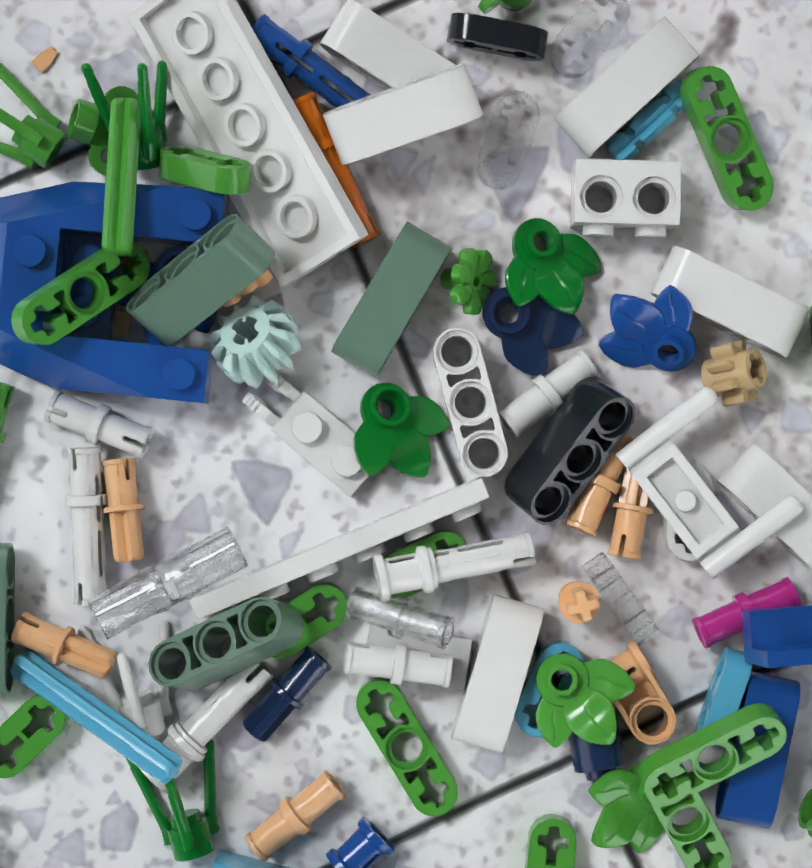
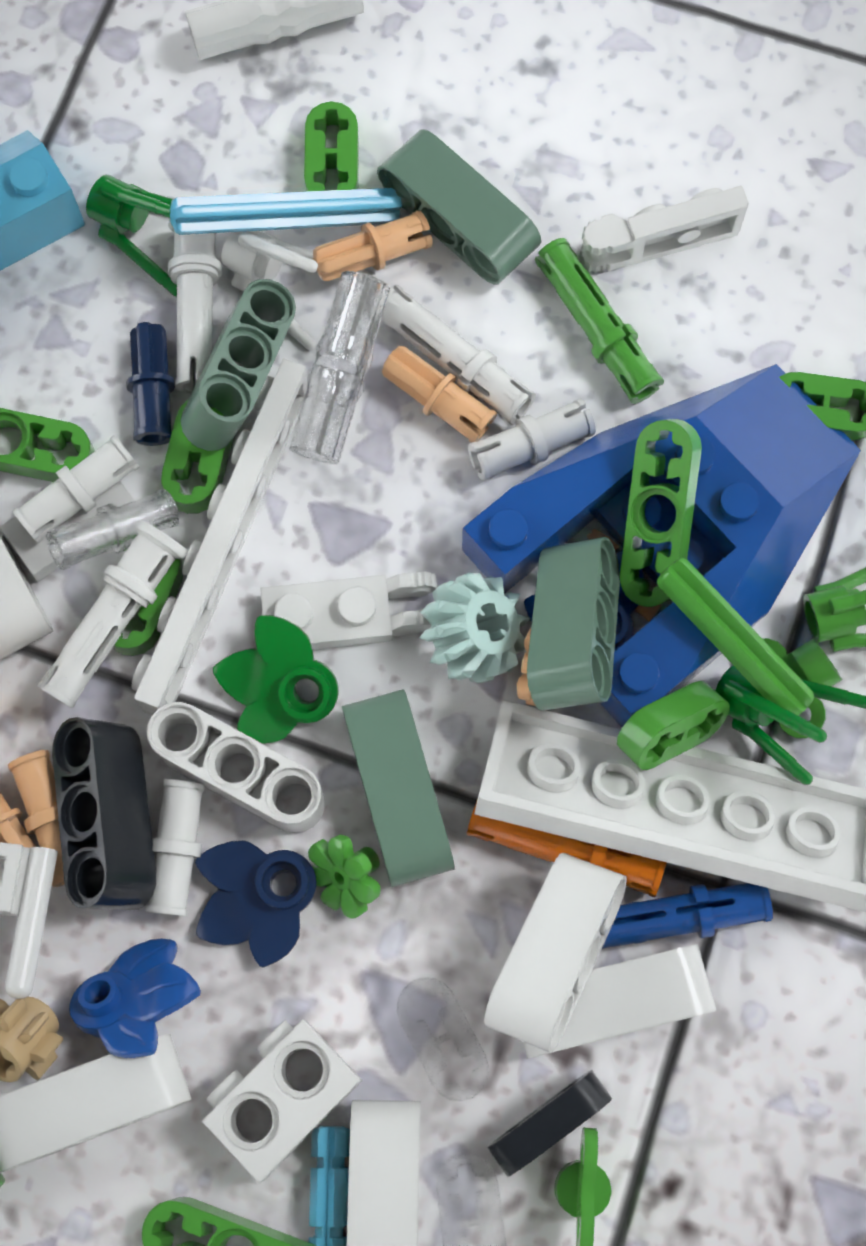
camera: 130 degrees right, 15 degrees down
(295, 815) = (45, 299): light nougat pin -> none
(549, 273) = (276, 960): green plate -> none

